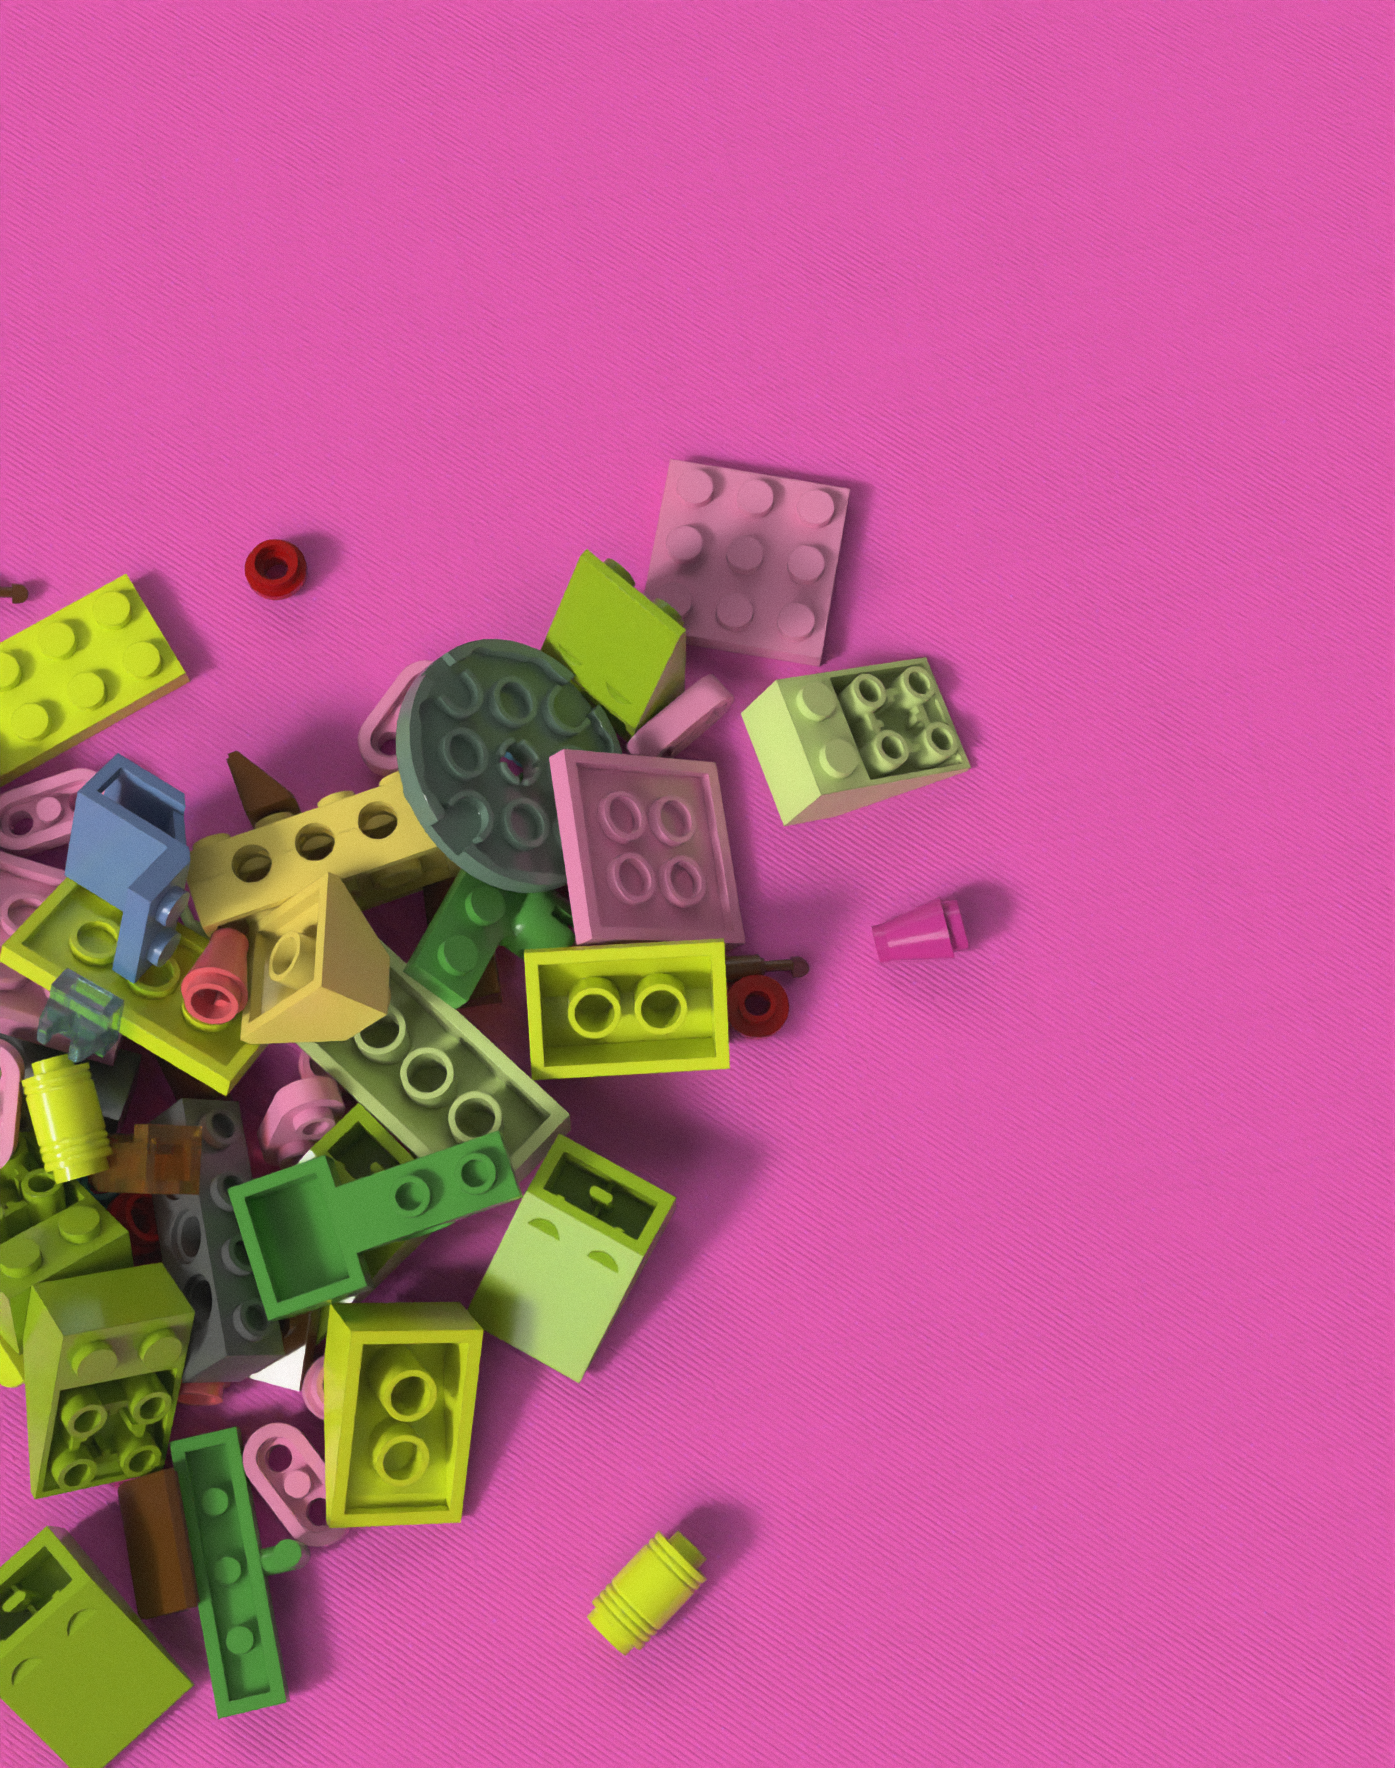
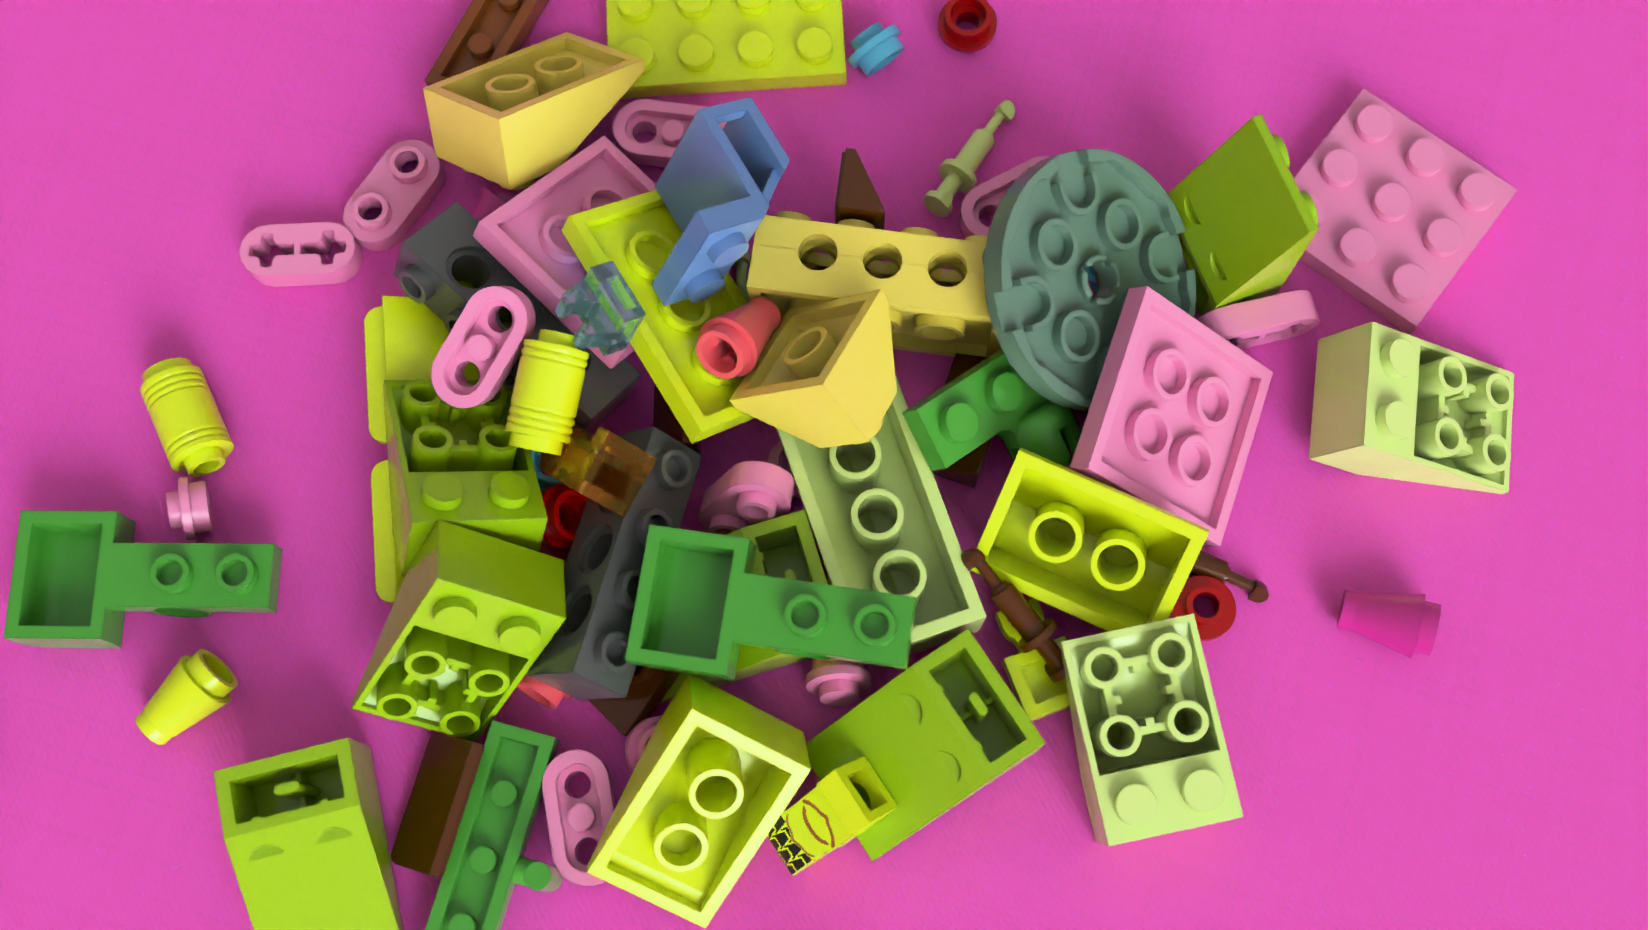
camera: 35 degrees right, 0 degrees up
(201, 635) = (876, 48): none -> medium azure plate
(340, 715) = (959, 172): none -> yellowish green piece
(467, 1240) = (838, 681): none -> bright pink plate
(521, 1362) = (830, 815): none -> neon yellow leg
(617, 1104) = (1034, 632): none -> reddish brown piece
(644, 1137) = (1027, 674): none -> neon yellow plate
(759, 1140) = (1148, 731): none -> yellowish green slope

